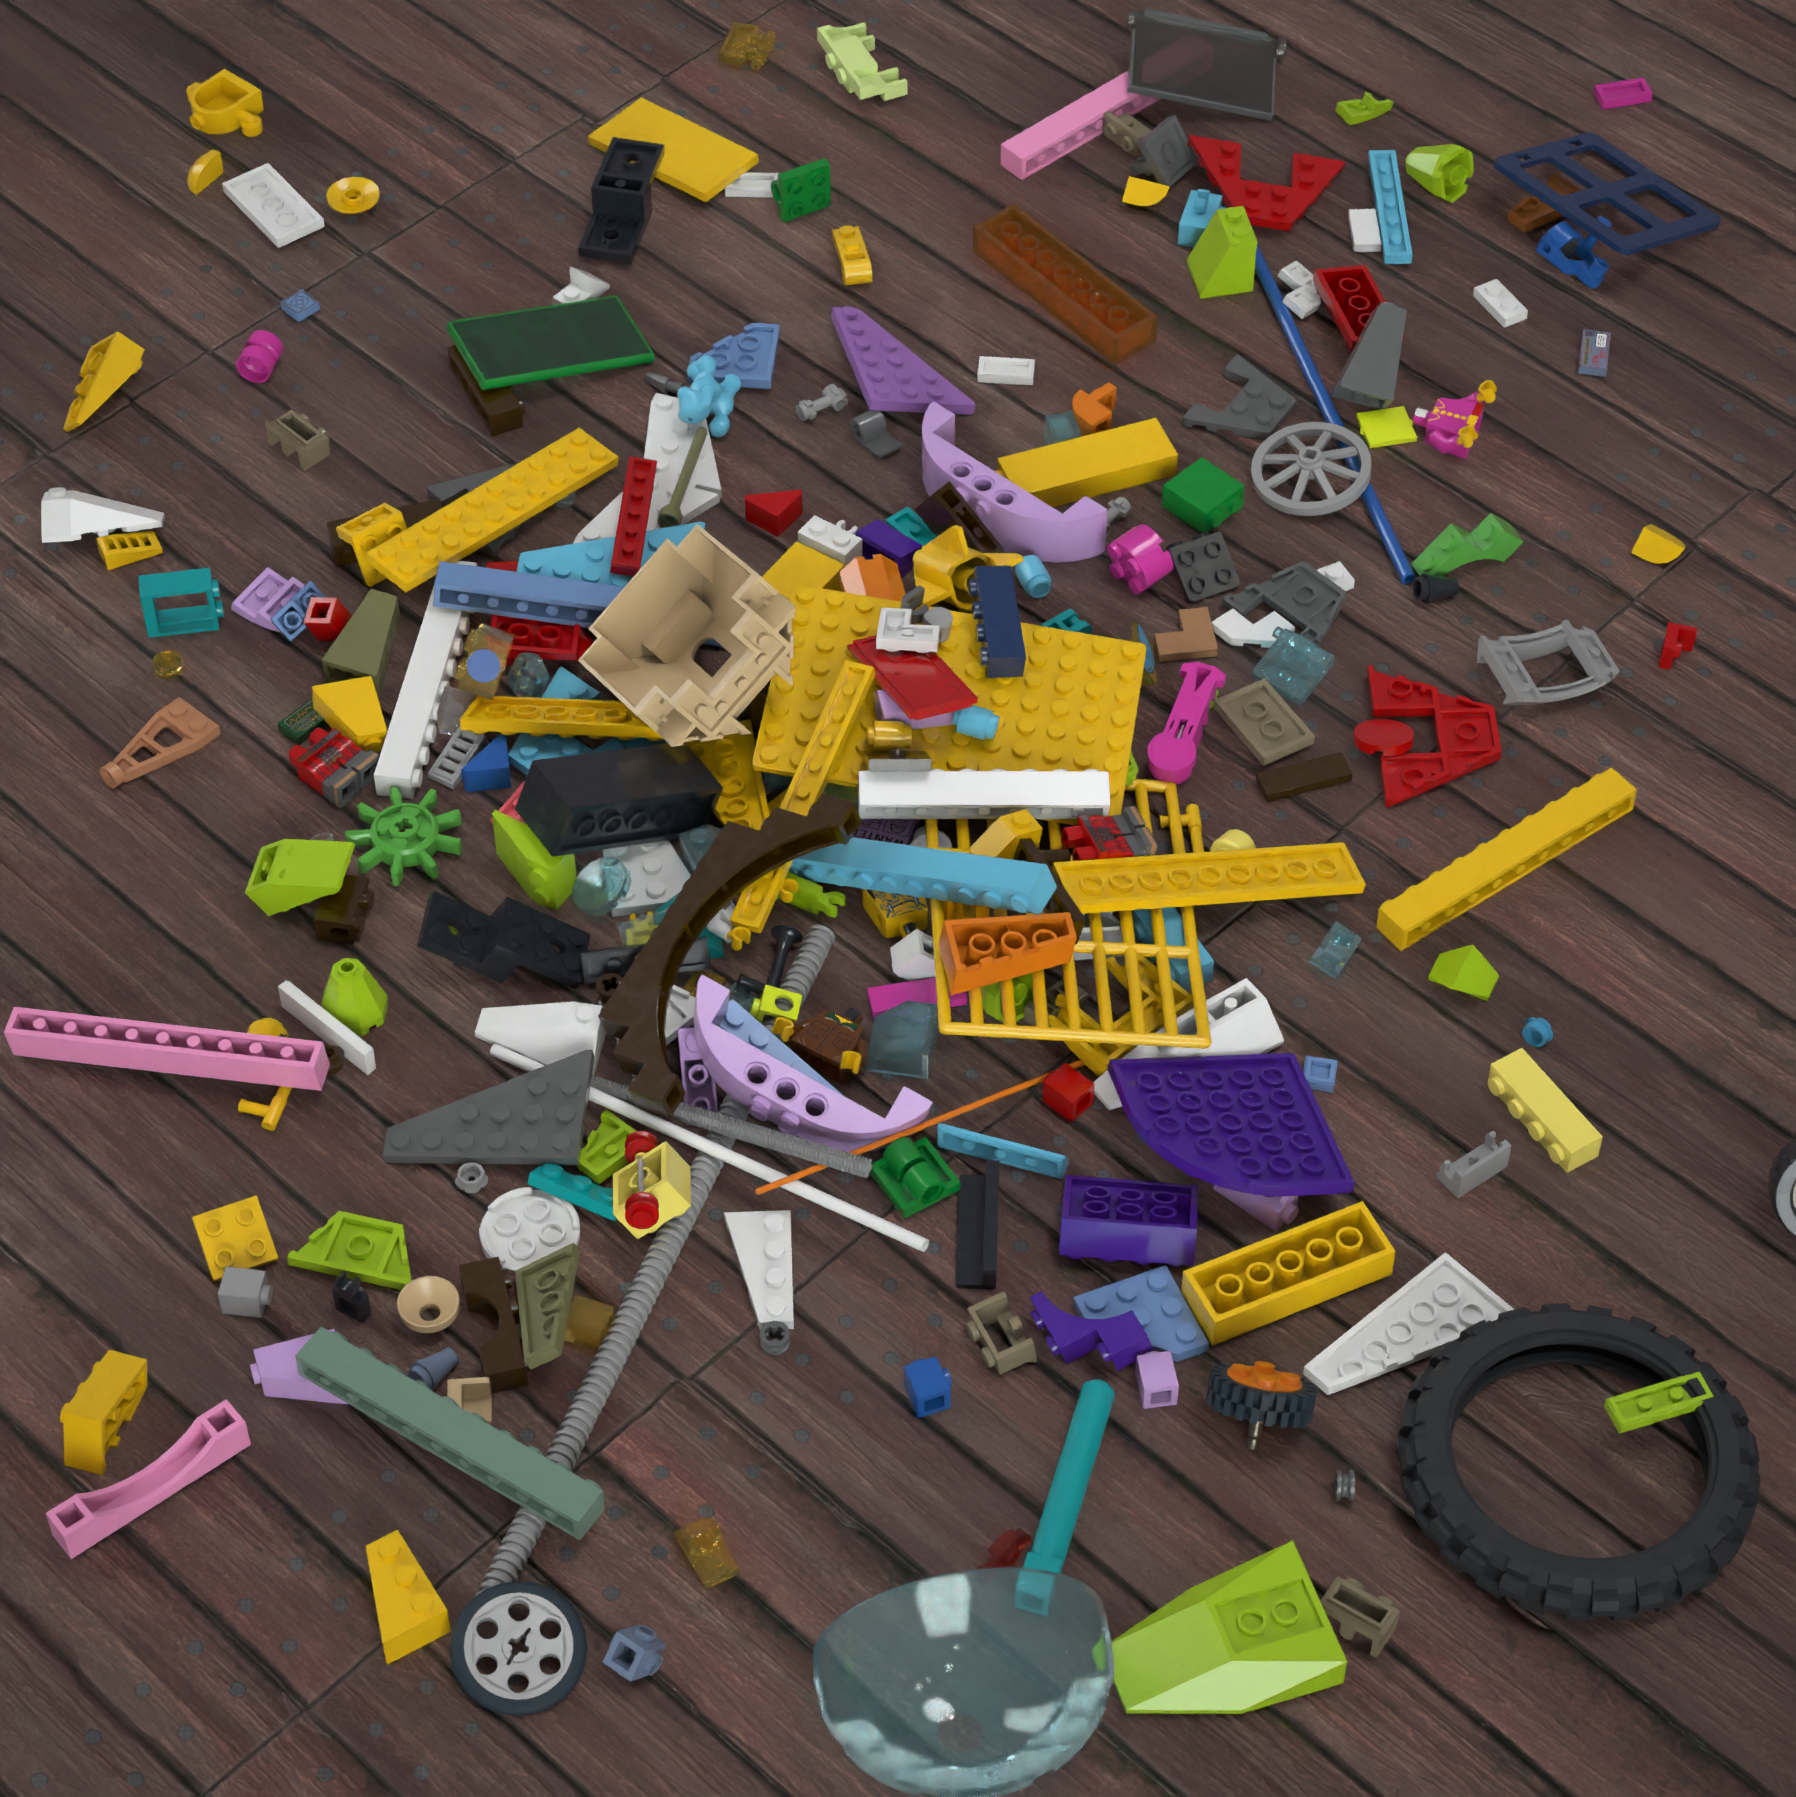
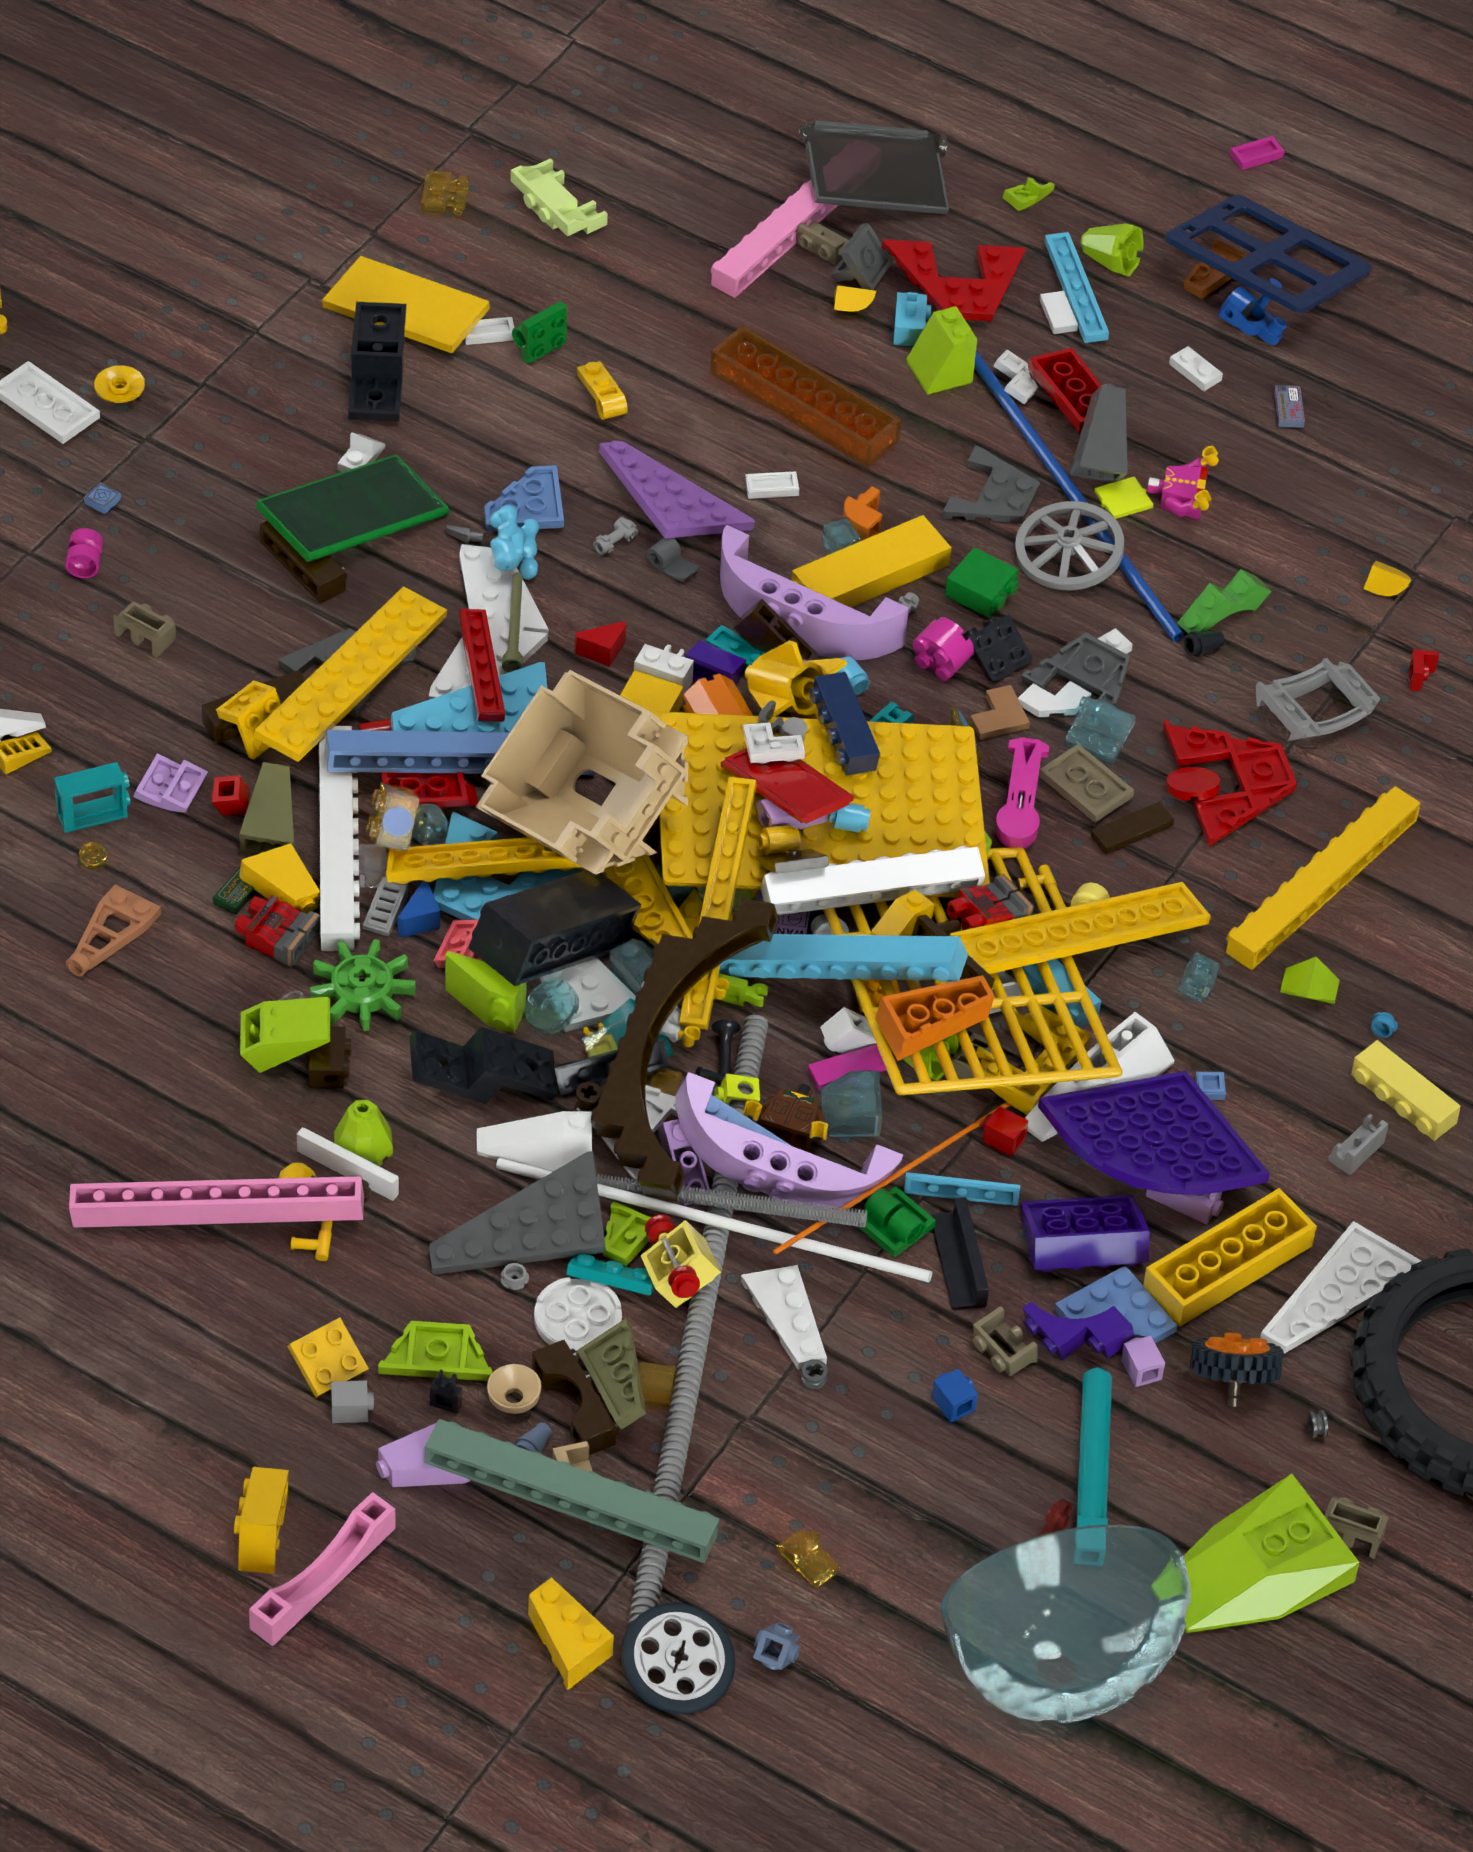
camera: 15 degrees left, 0 degrees up
(292, 614) = (198, 791): medium blue slope -> none
(895, 913) = (814, 996): yellow torso -> none

